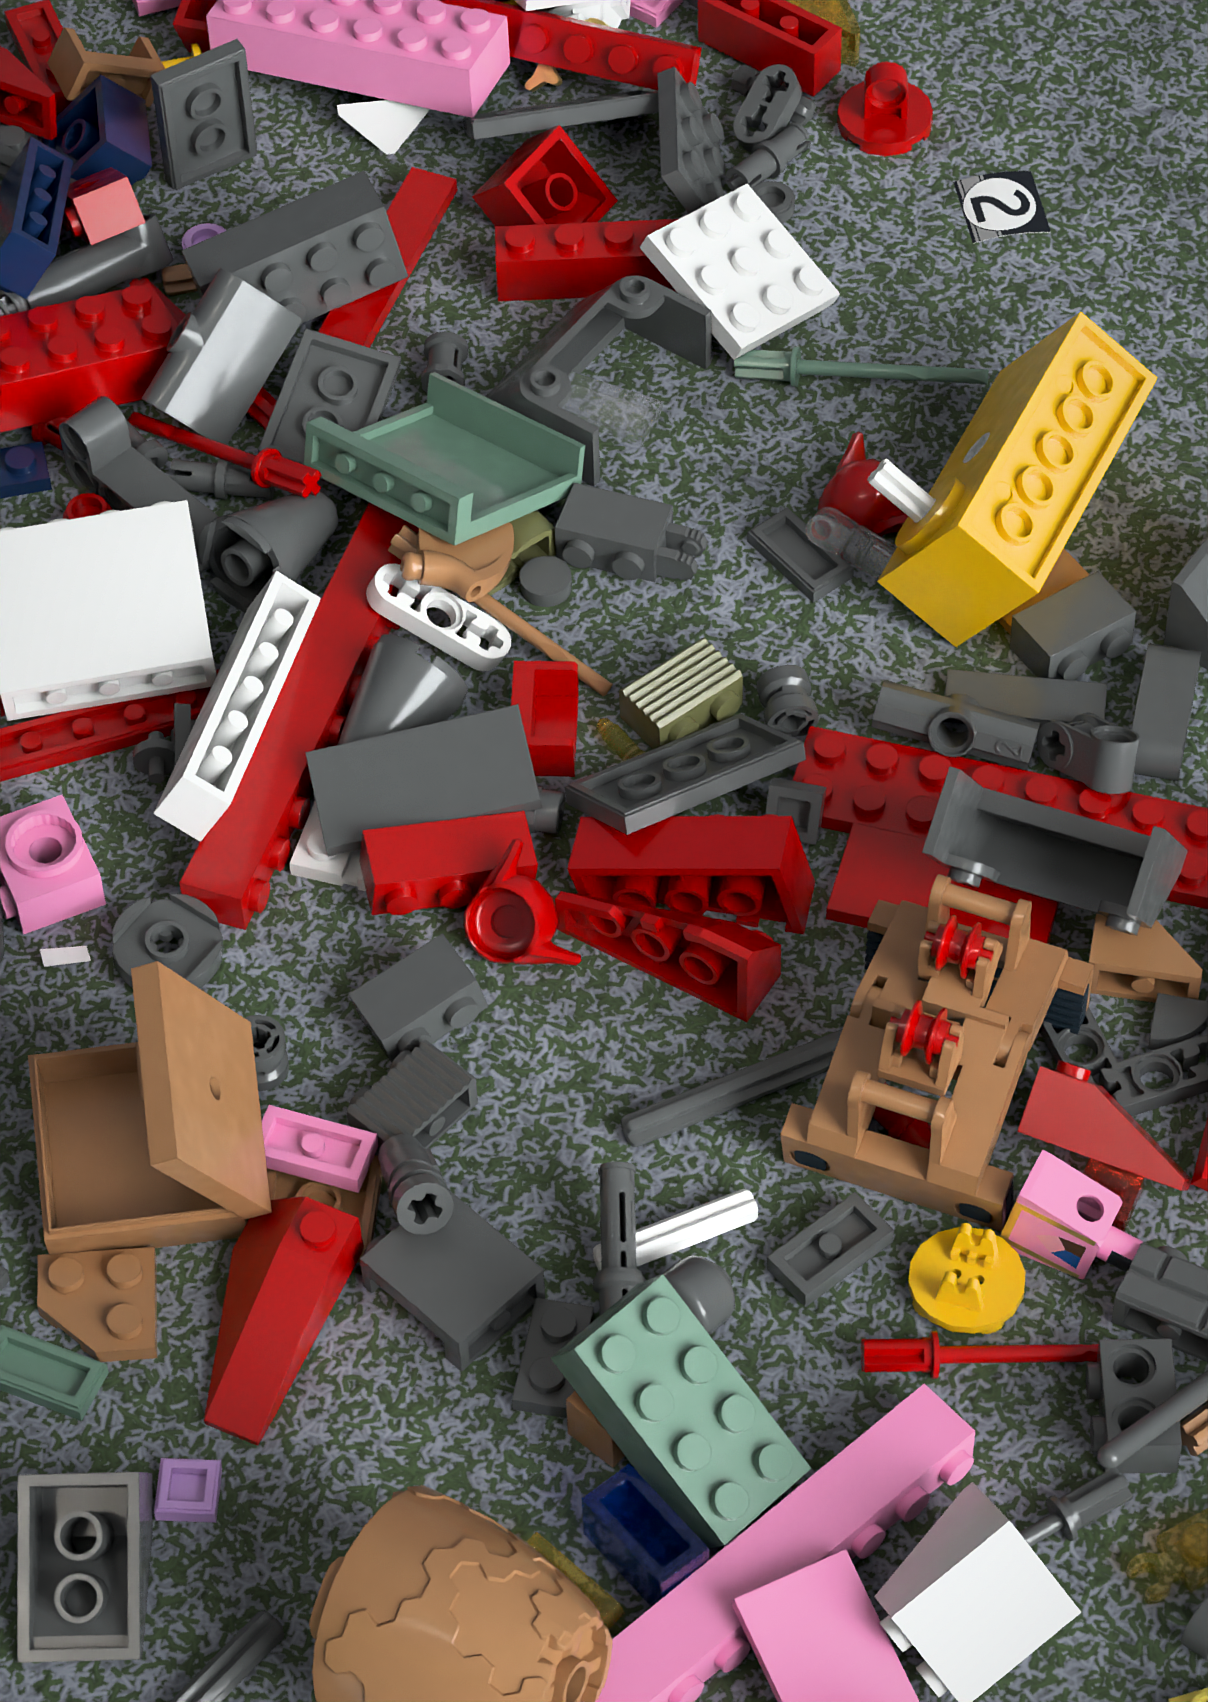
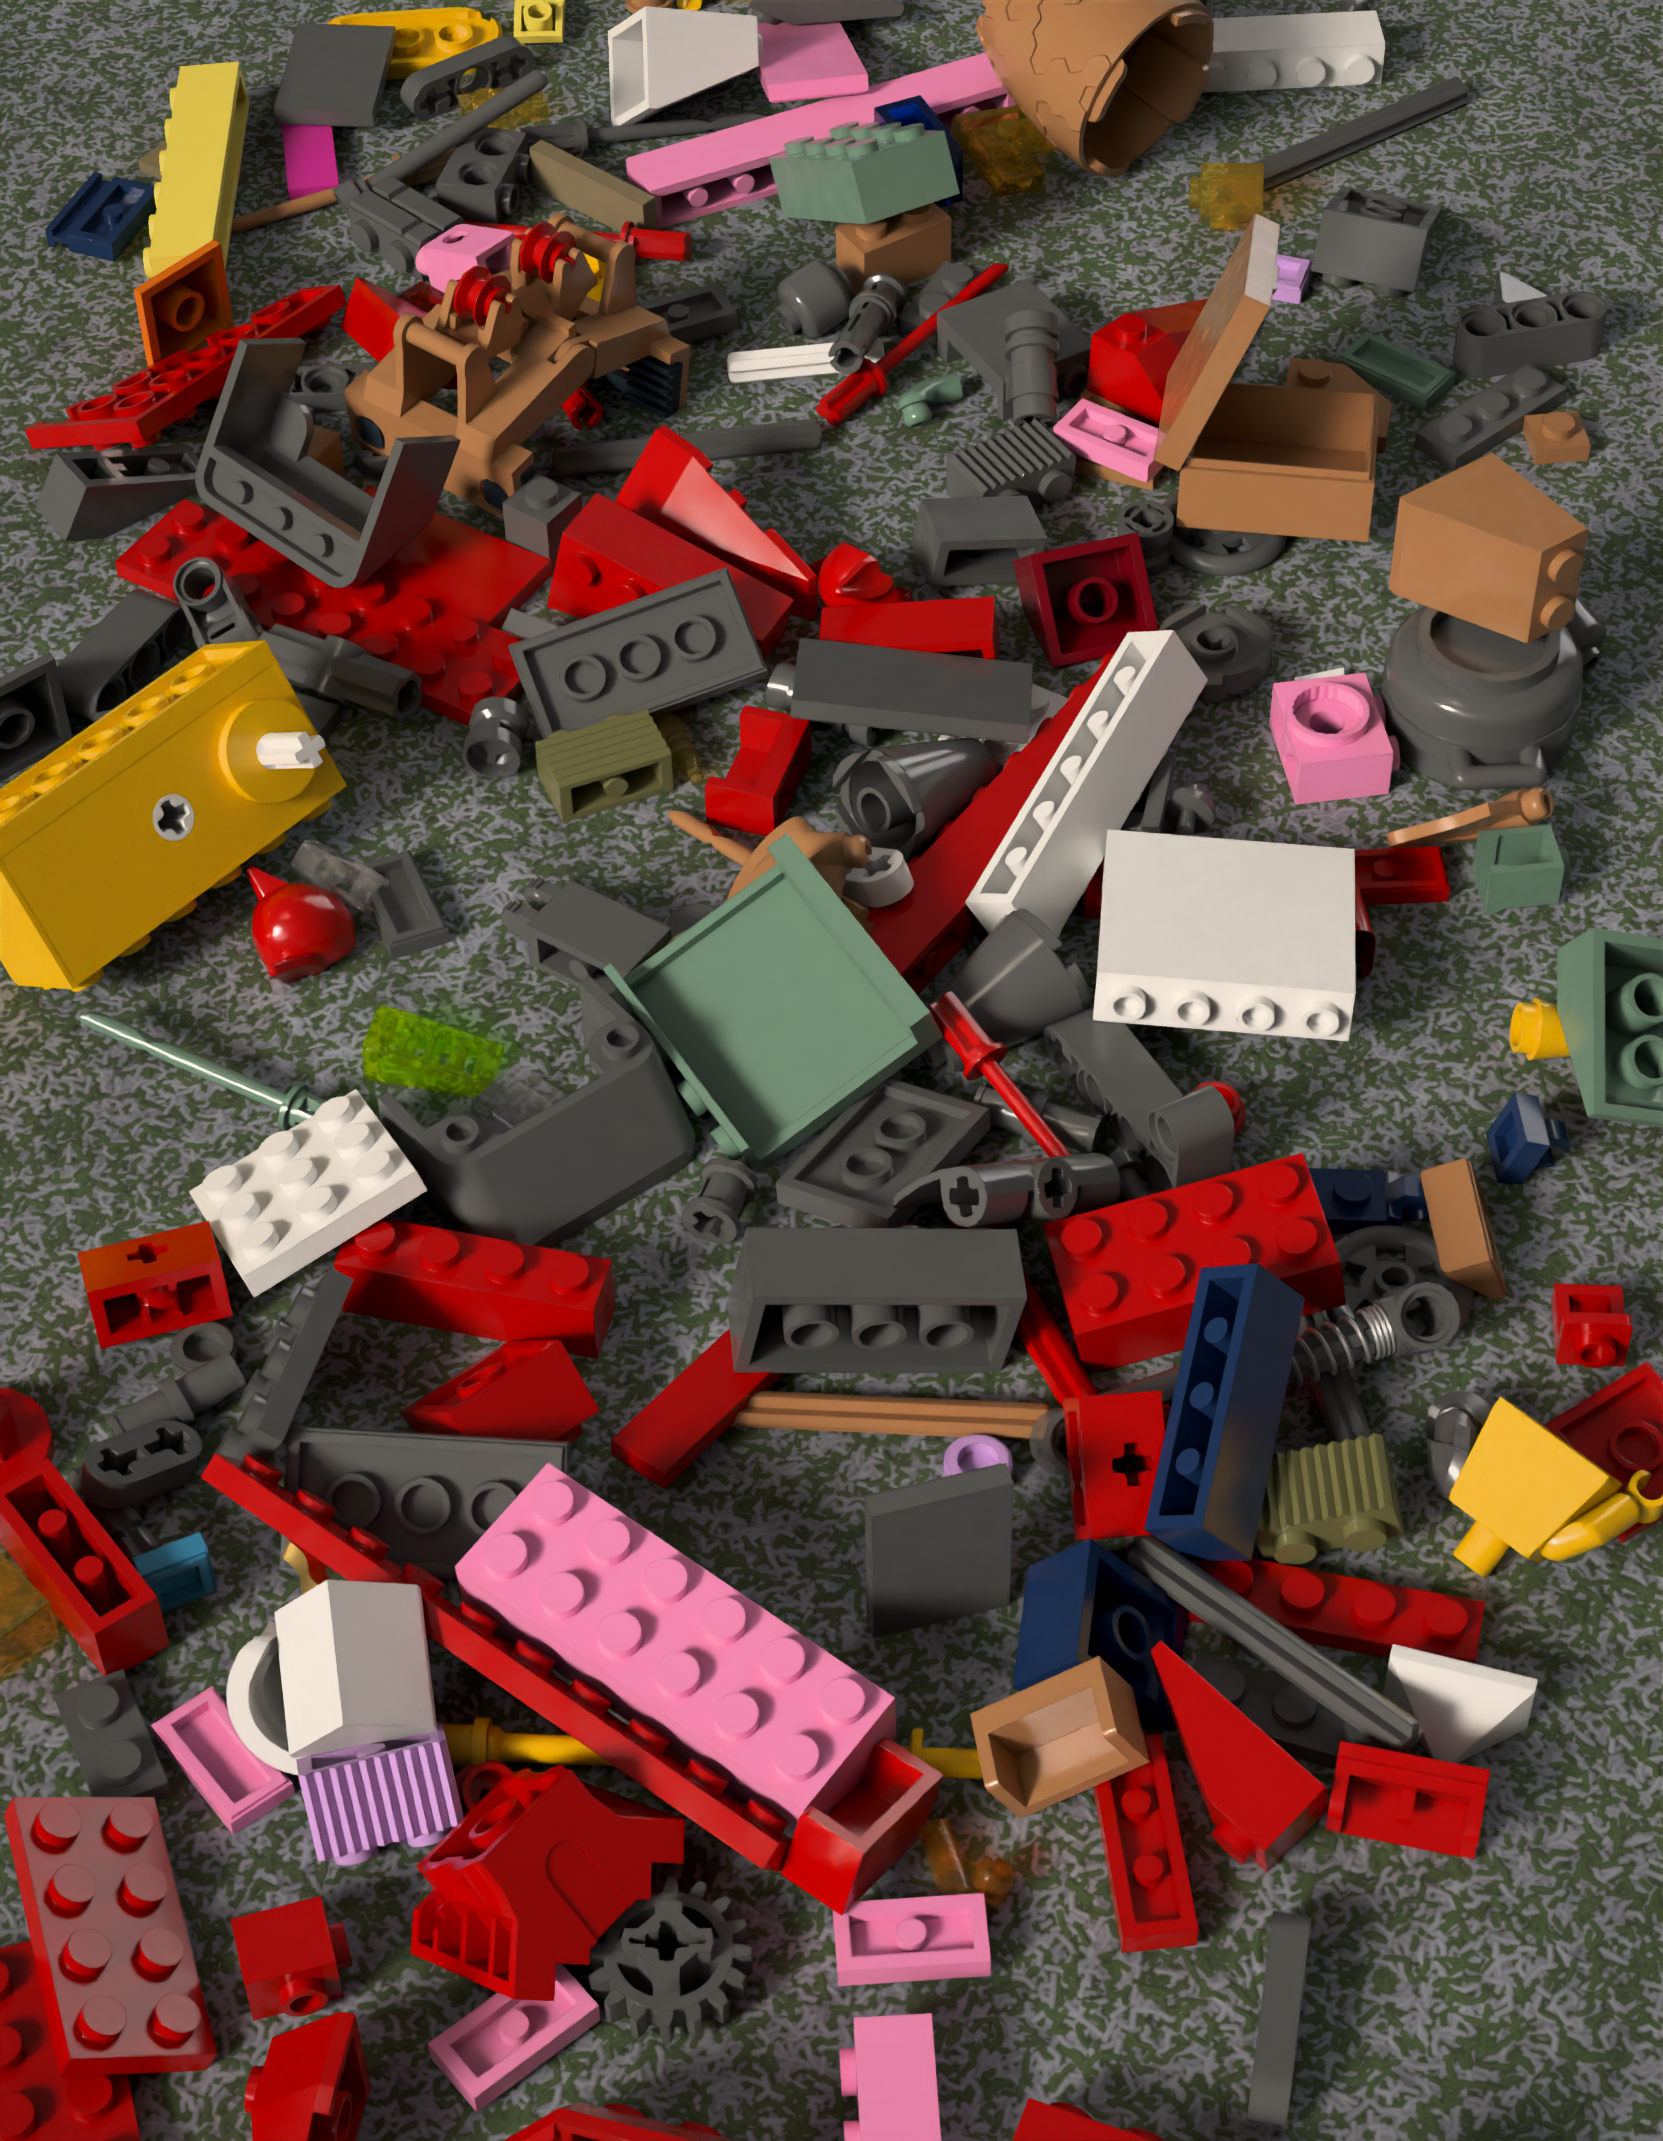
camera: 165 degrees left, 5 degrees down
(152, 24) = (960, 1875): none -> clear orange arm
(268, 1570) = (1227, 194): none -> clear yellow brick
(302, 971) = (1086, 597): none -> dark red slope
(537, 1208) = (925, 394): none -> sand green arm
(588, 1209) = (870, 377): none -> red piece
(715, 57) = (178, 1571): none -> dark azure tile
(732, 444) = (414, 1032): none -> clear neon green slope
(827, 208) = (155, 1284): none -> red brick
(841, 930) = (539, 515): none -> dark grey brick
(1009, 1414) = (590, 189): none -> dark tan tile

